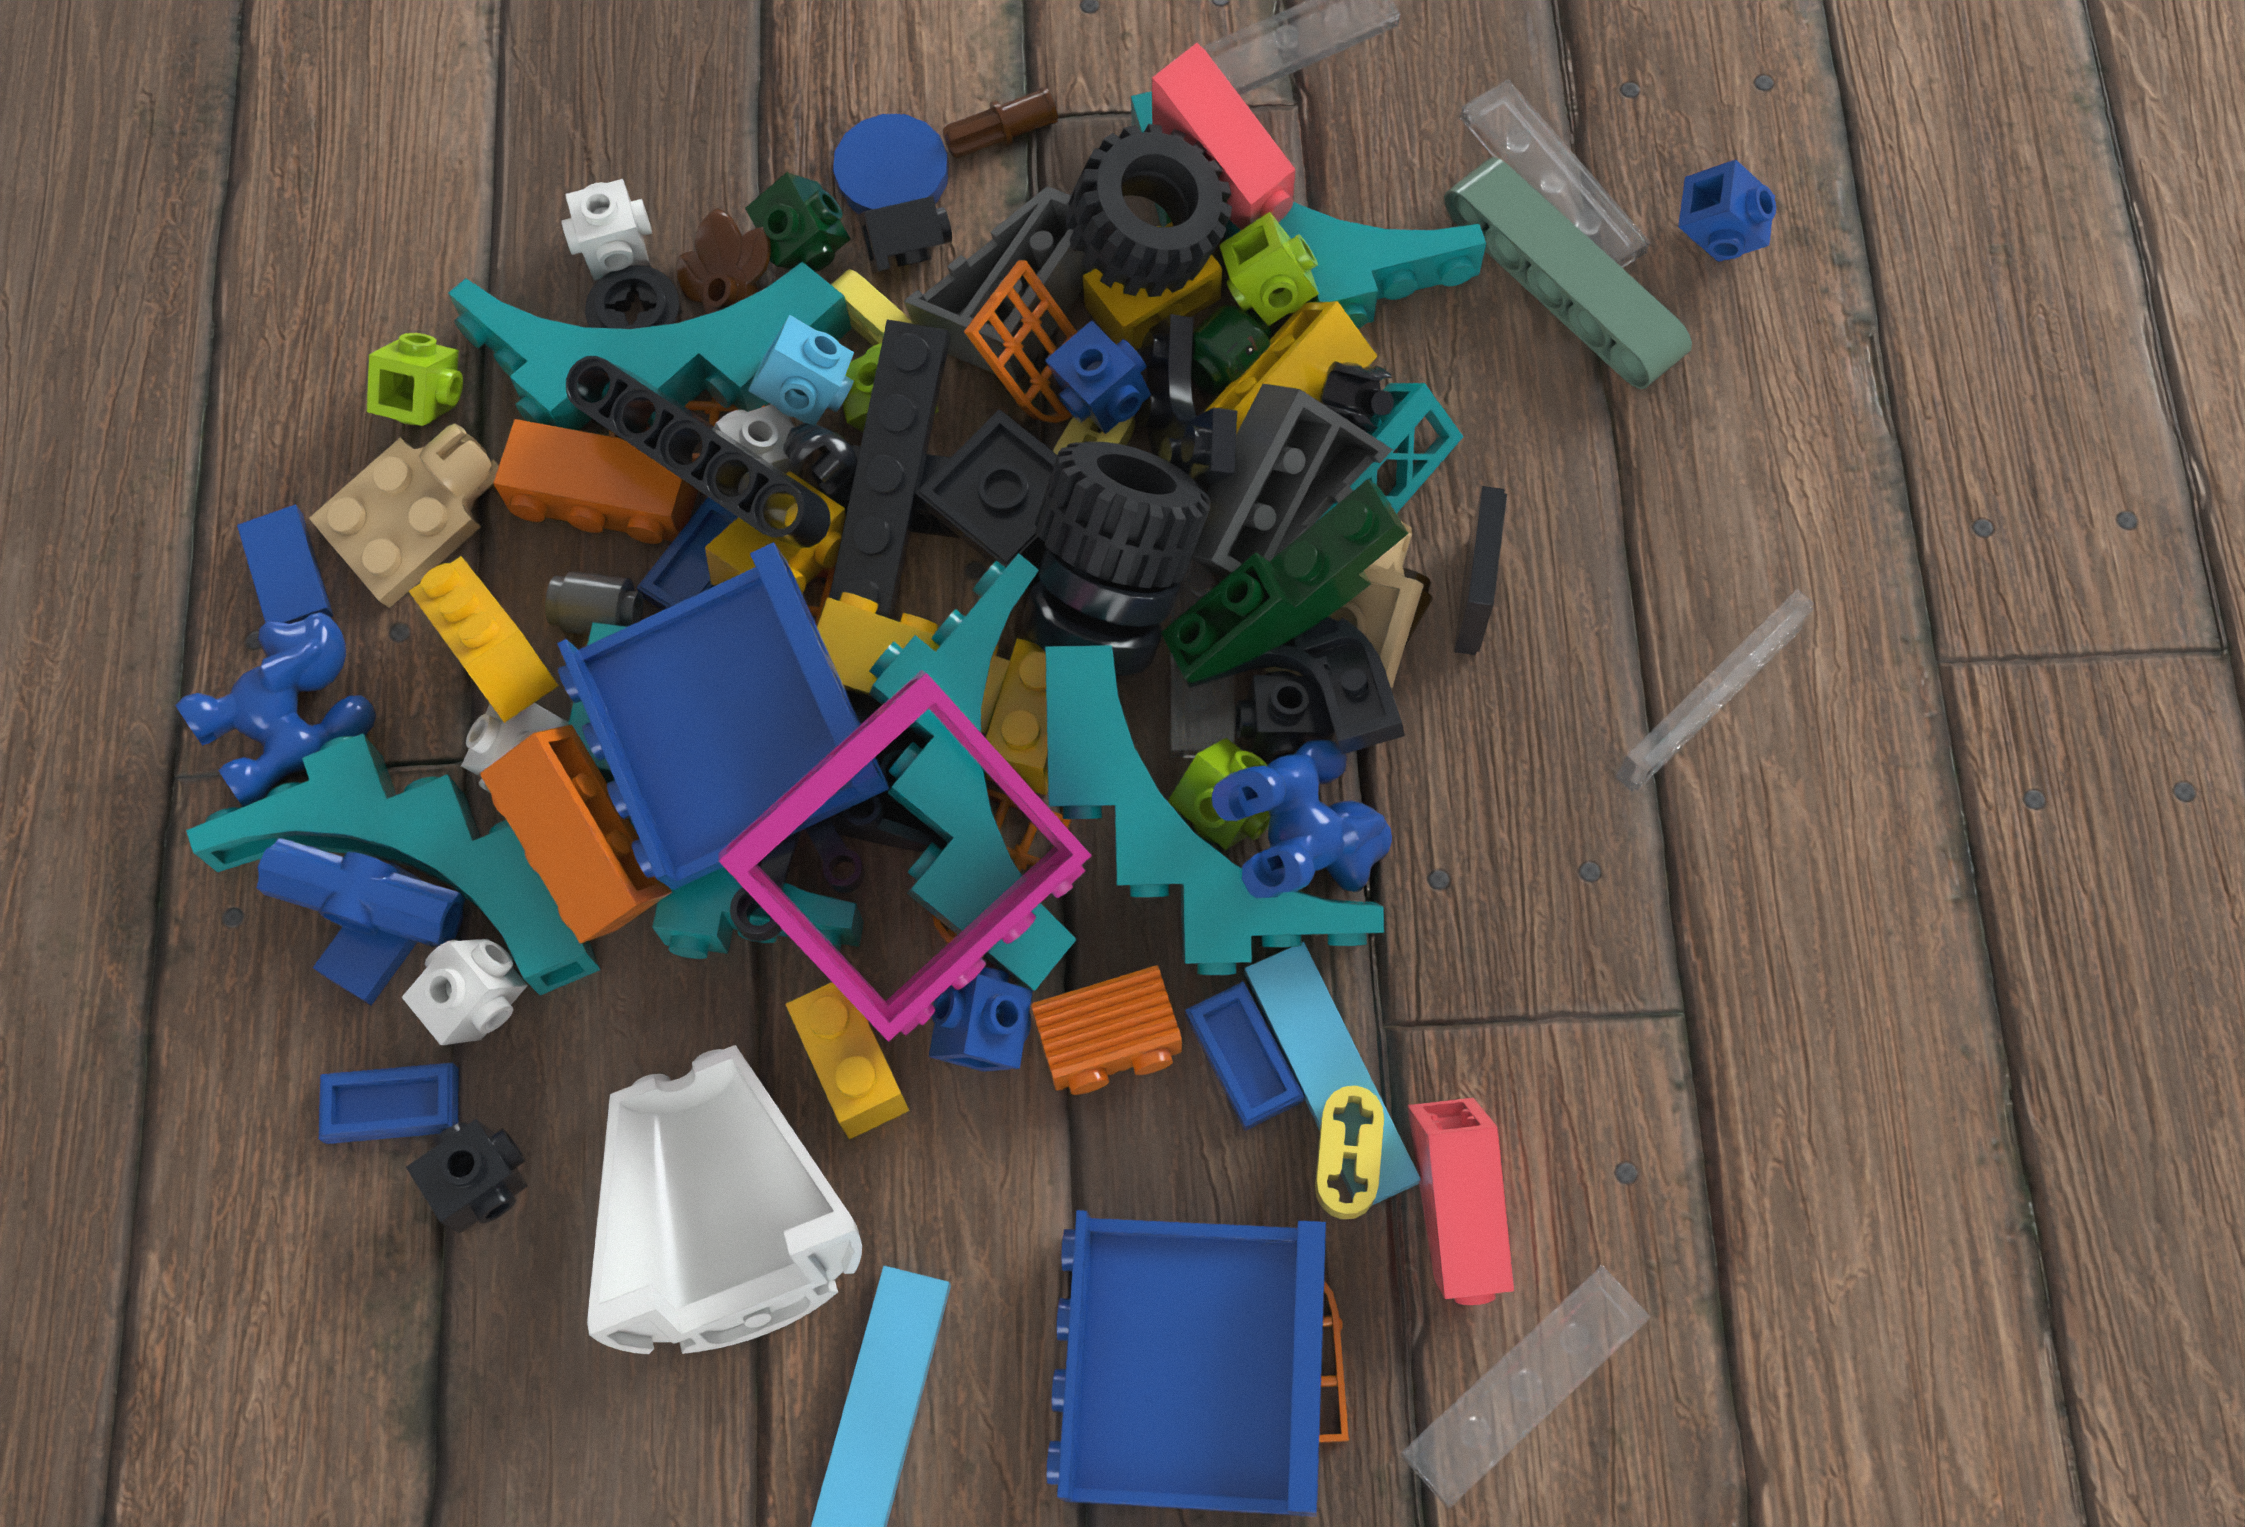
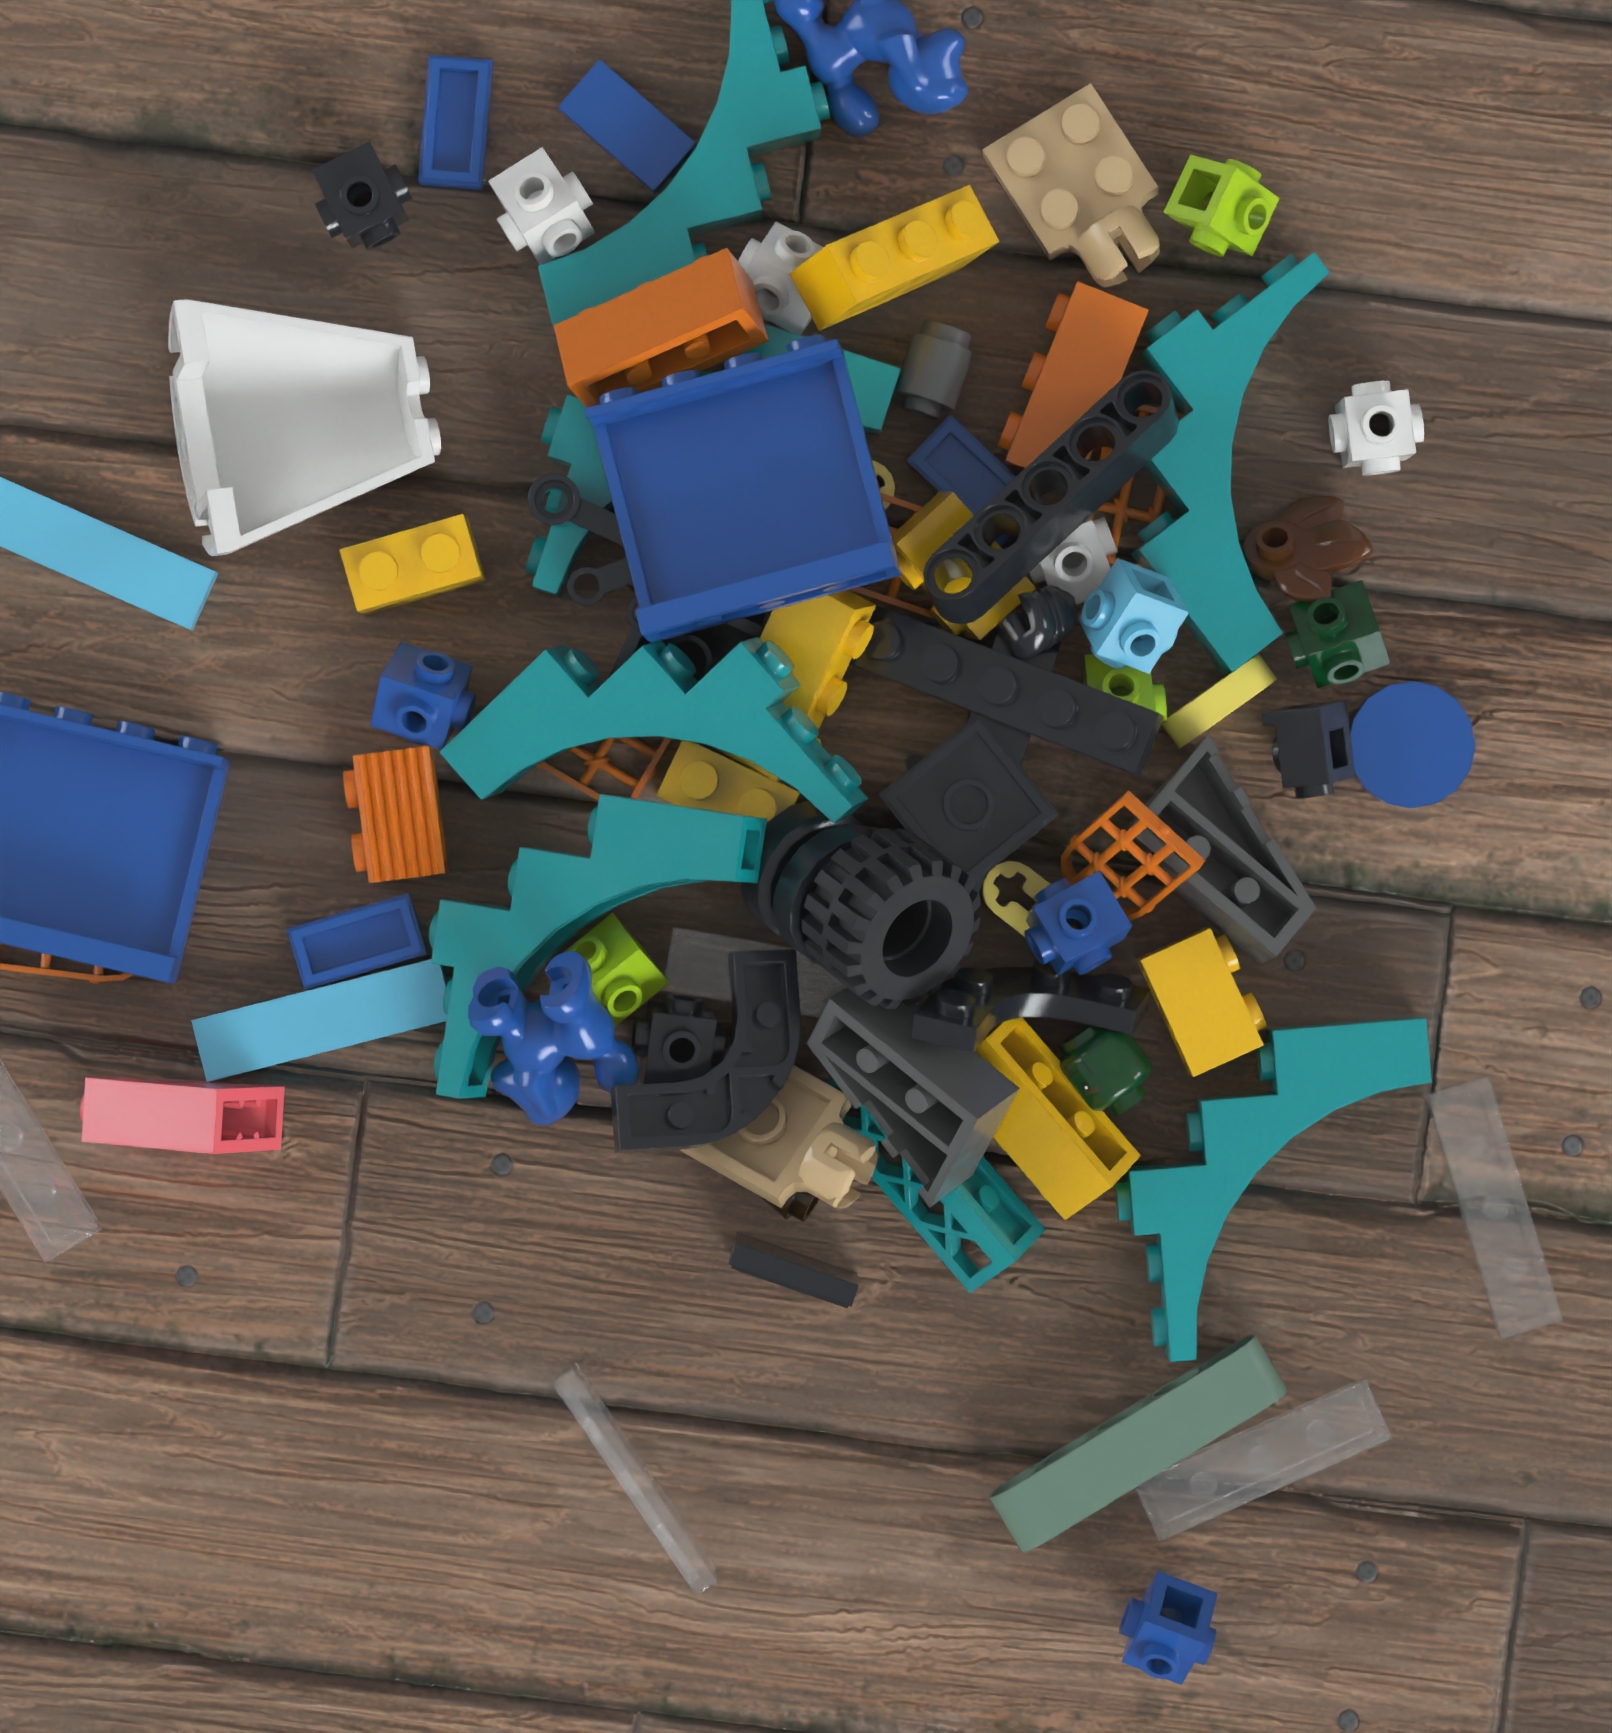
camera: 100 degrees right, 20 degrees up
(284, 566) = (1039, 53): blue tile -> none
(360, 893) = (656, 114): blue piece -> none
(617, 290) = (1306, 426): black gear -> none
(962, 957) = (638, 598): dark pink window -> none
(1000, 123) = (1440, 871): reddish brown axle -> none
(1174, 178) = (1231, 1056): black tyre -> none
(1204, 105) = (1312, 1101): coral slope -> none
(1269, 269) = (1166, 1124): lime brick -> none
(1280, 598) = (784, 1066): dark green slope -> none
(1356, 393) = (1015, 1181): black arm -> none
(1365, 1153) = (234, 1034): light yellow beam -> none

